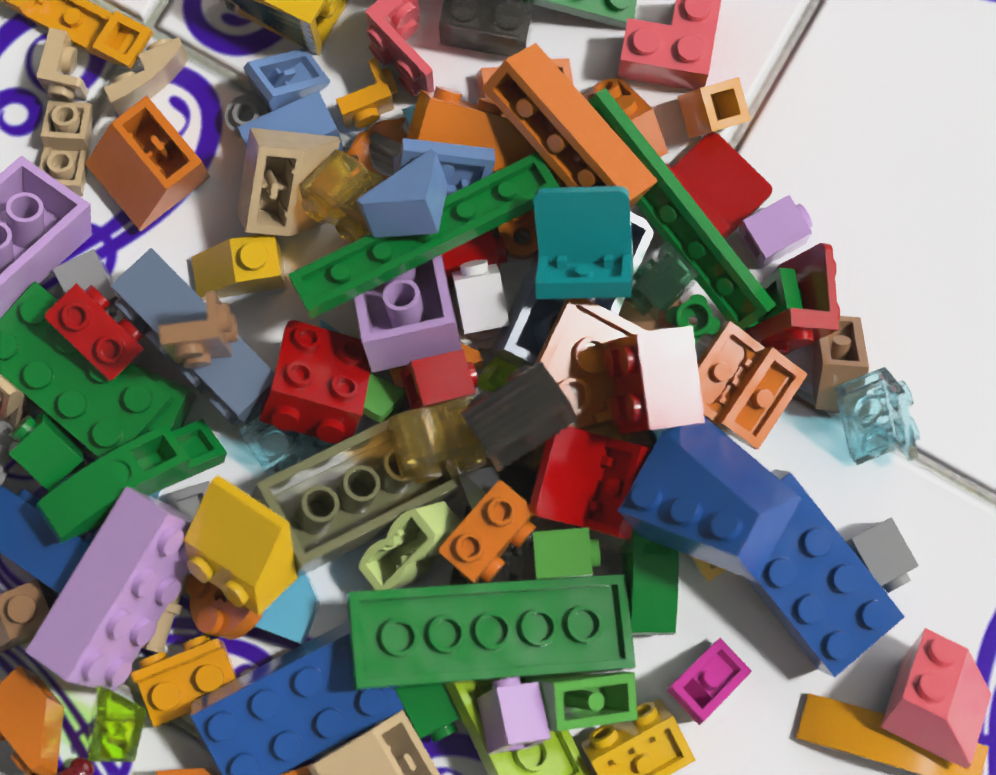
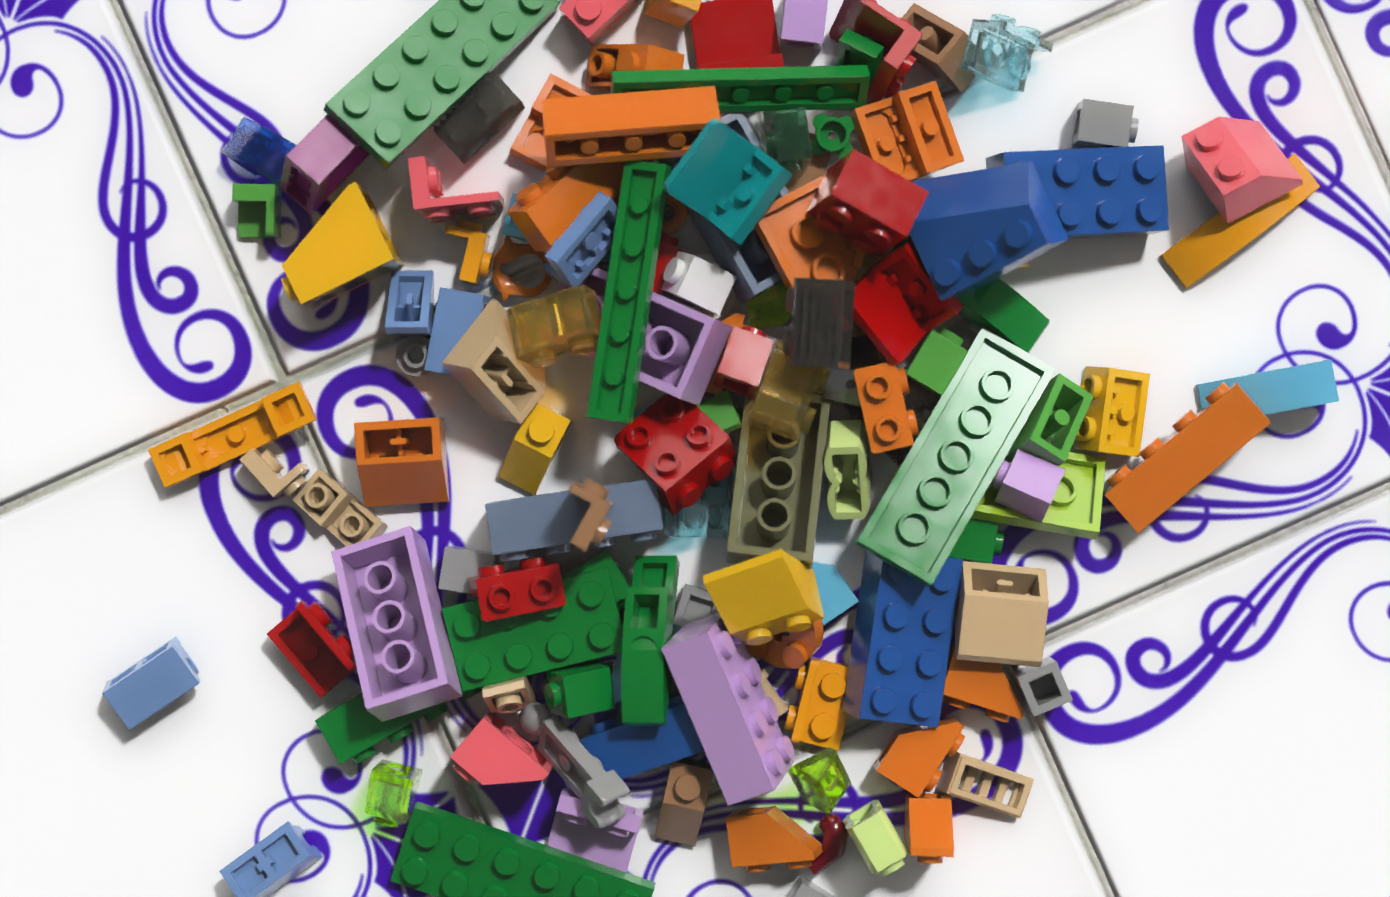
camera: 55 degrees left, 10 degrees up
(161, 64) = (327, 394): tan slope -> none
(408, 200) = (598, 287): medium blue slope -> none
(709, 681) = (1102, 323): dark pink slope -> none

